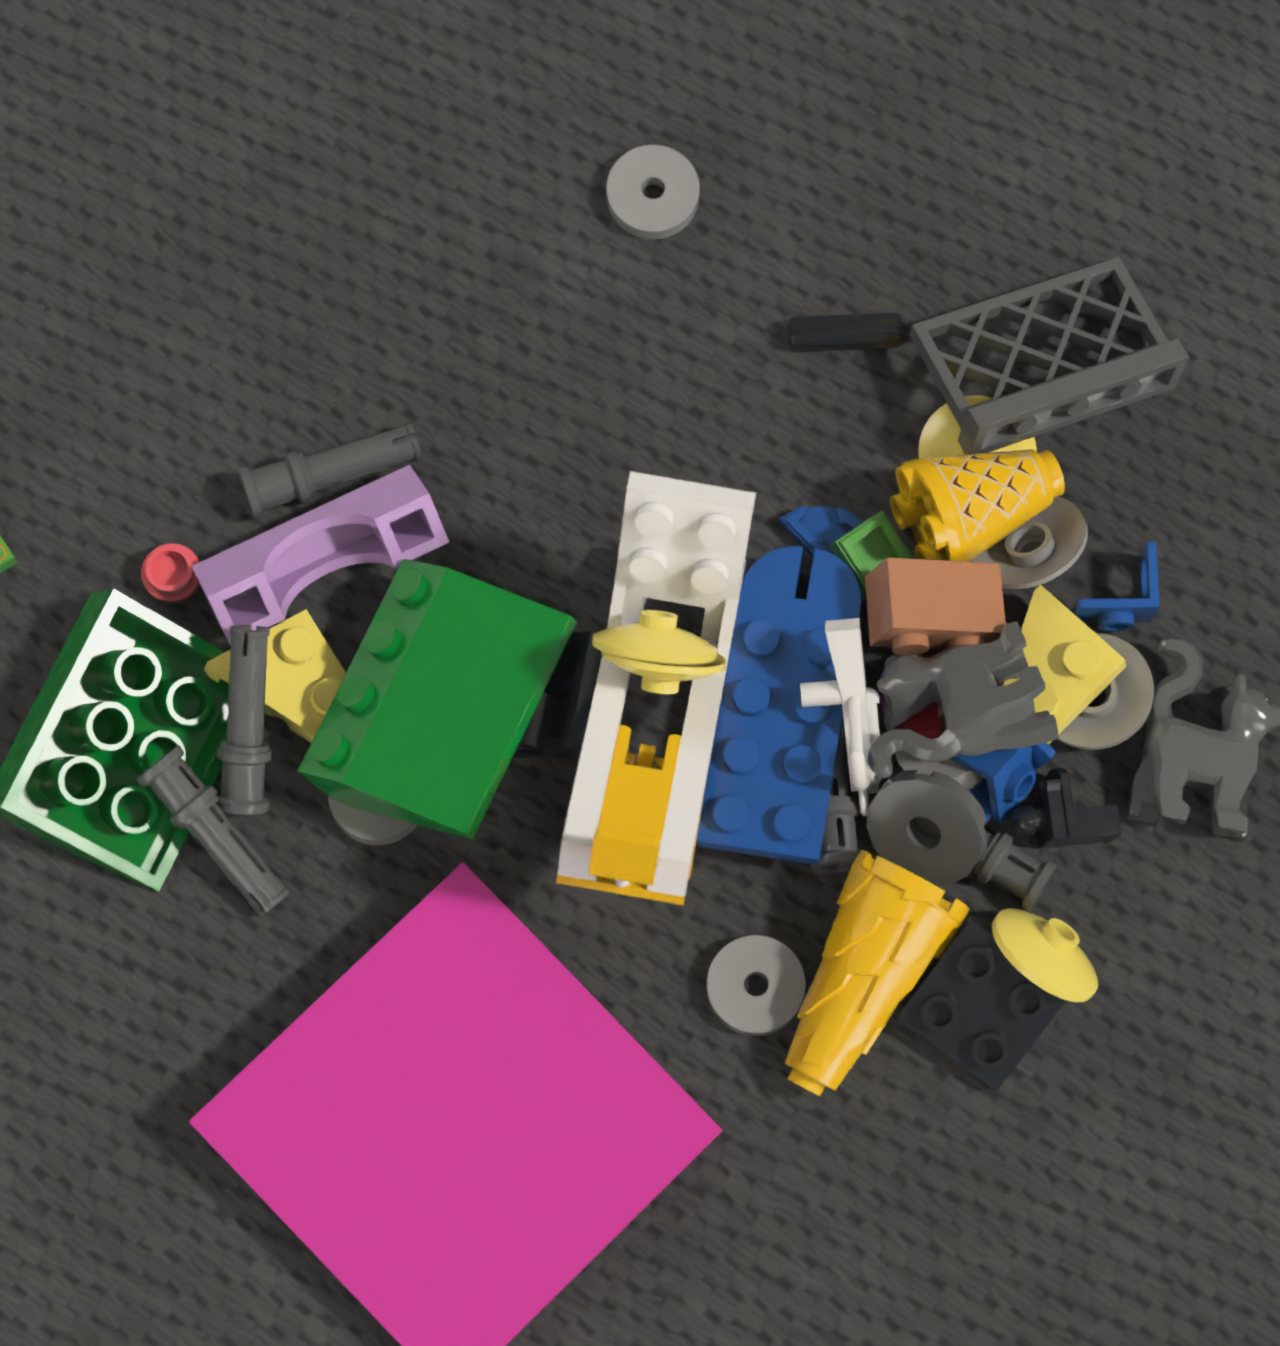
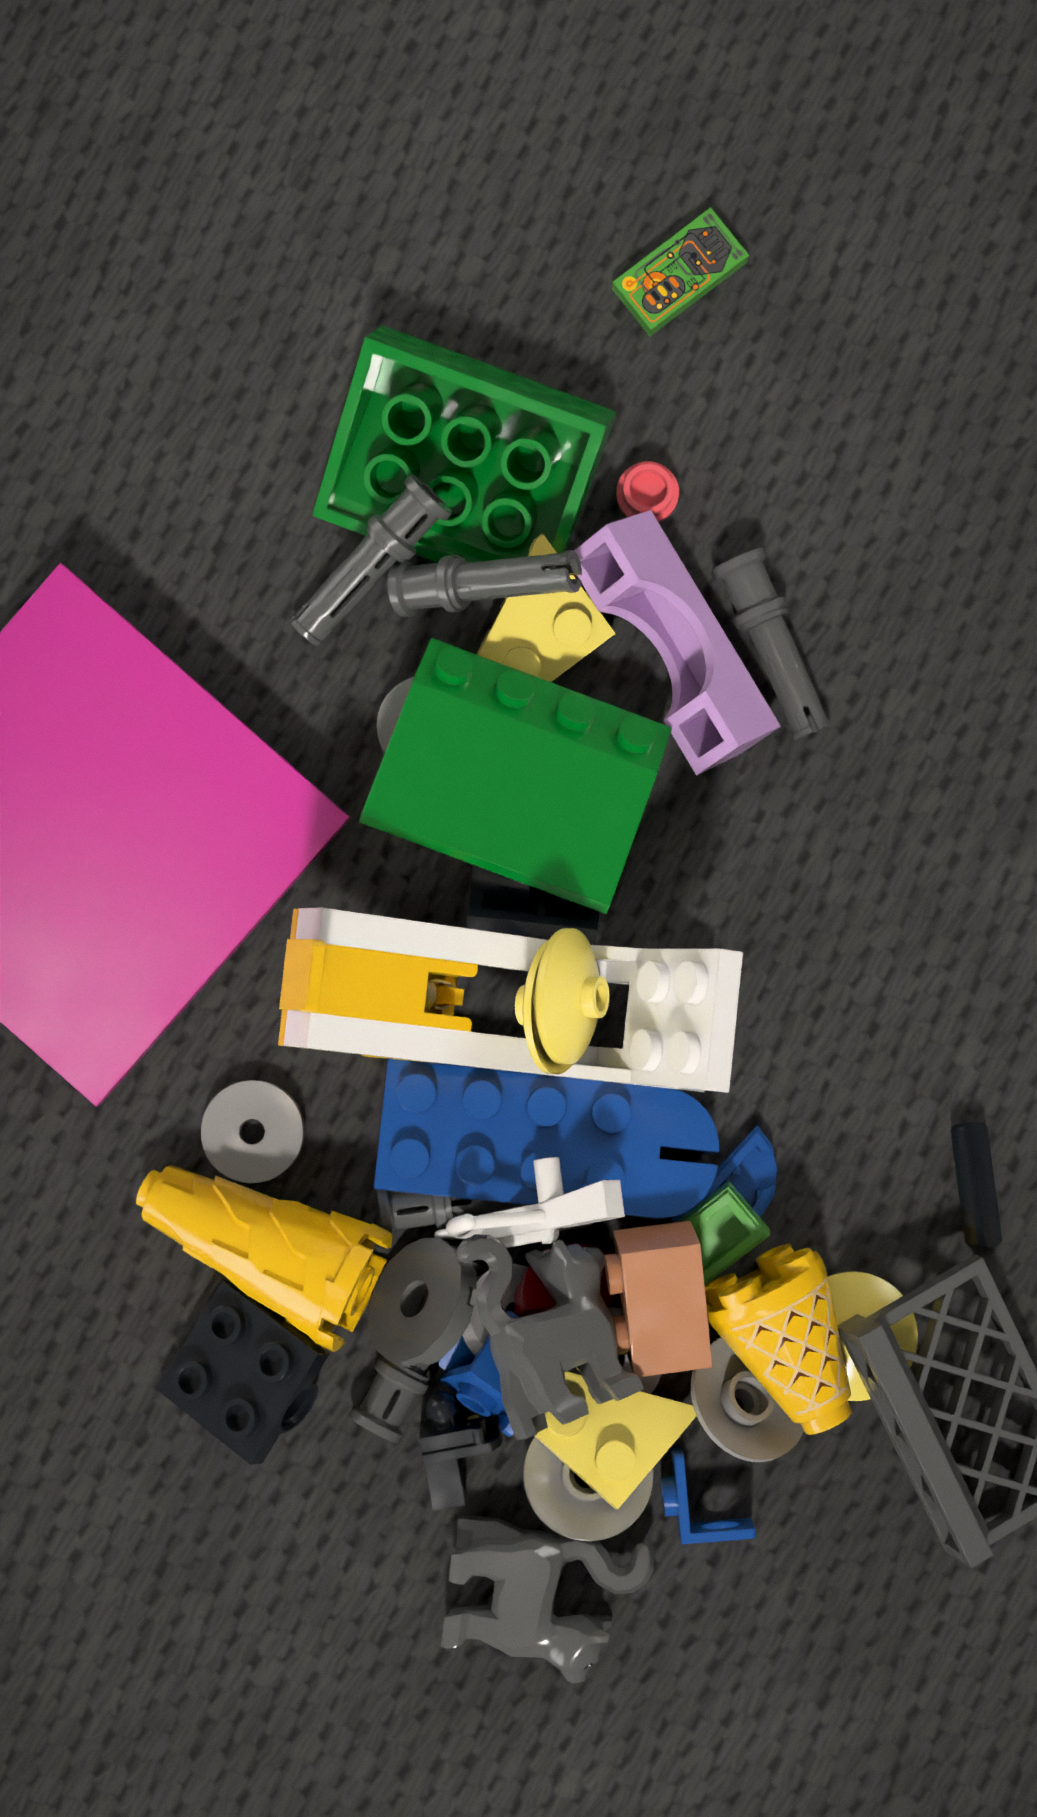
camera: 90 degrees right, 10 degrees up
(1046, 954) = (293, 1434): light yellow dish -> none

